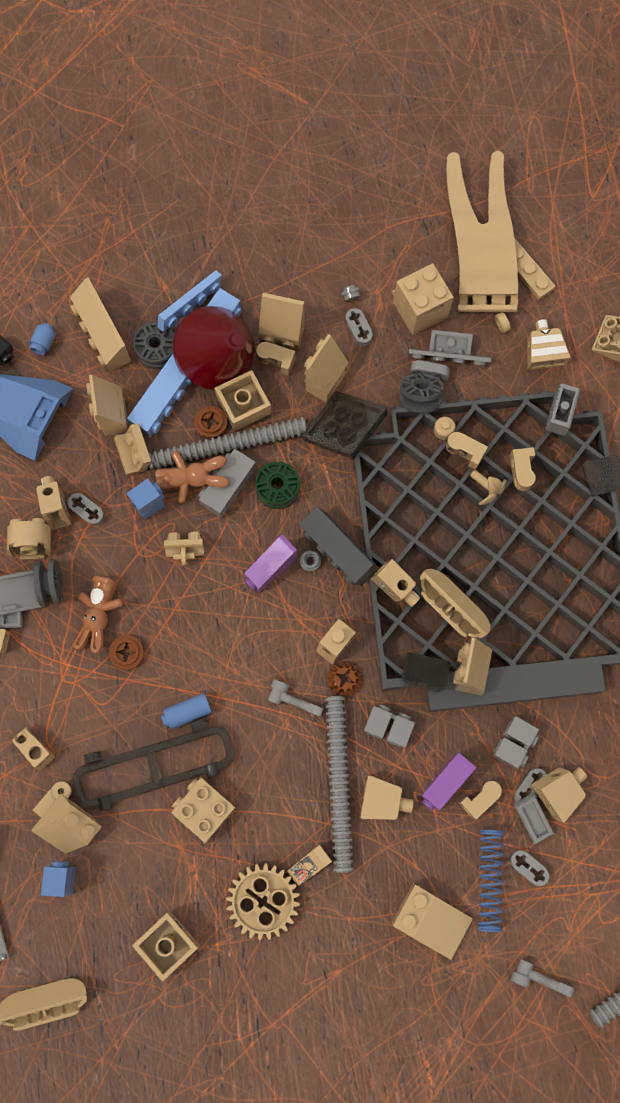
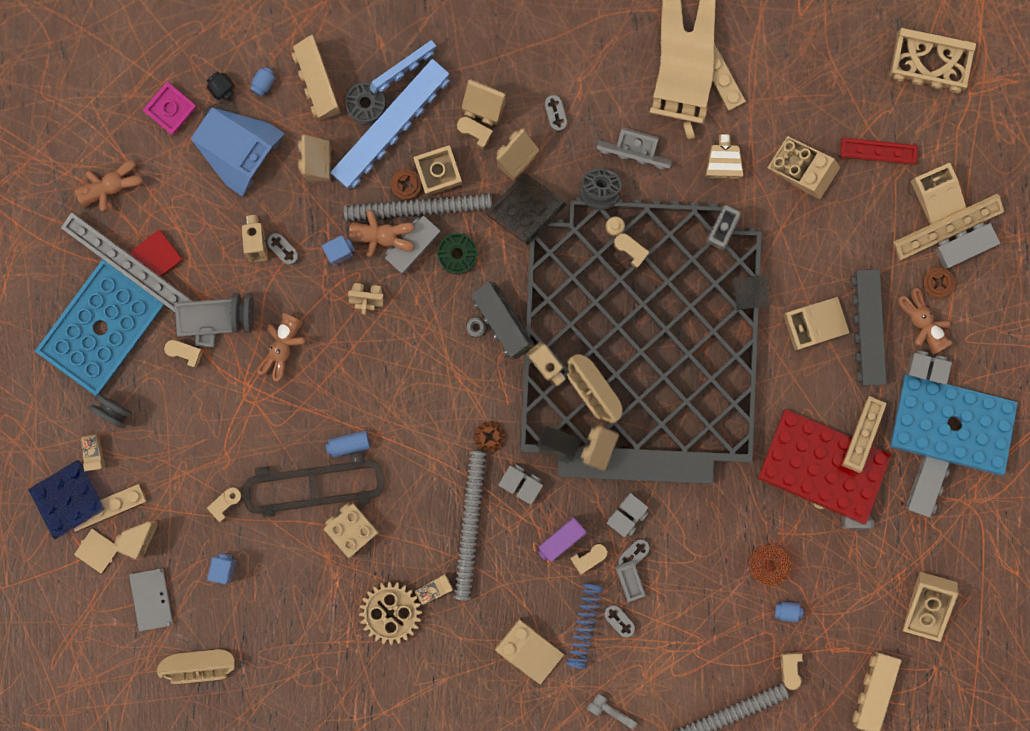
camera: 15 degrees right, 10 degrees up
(28, 539) = (229, 270): tan brick -> none
(33, 749) = (212, 455): tan leg -> none
(66, 825) = (234, 525): tan slope -> none
(119, 645) = (298, 375): dark orange gear -> none
(133, 450) = (331, 202): tan bracket -> none
(166, 945) = (304, 636): tan brick -> none
(213, 347) = (418, 117): dark red cone -> none
(271, 564) = (439, 327): medium lavender slope -> none
(279, 694) = (430, 440): light grey brick -> none
(336, 641) = (487, 402): tan torso -> none
(351, 293) = (553, 79): light grey plate -> none
(383, 800) = (505, 546): tan torso -> none
(422, 299) = (617, 99): tan container -> none
(438, 370) = (619, 168): light grey beam -> none
(492, 484) = (647, 288): tan plant -> none
(521, 468) = (676, 275): tan leg -> none
(560, 792) = (657, 562): tan torso -> none

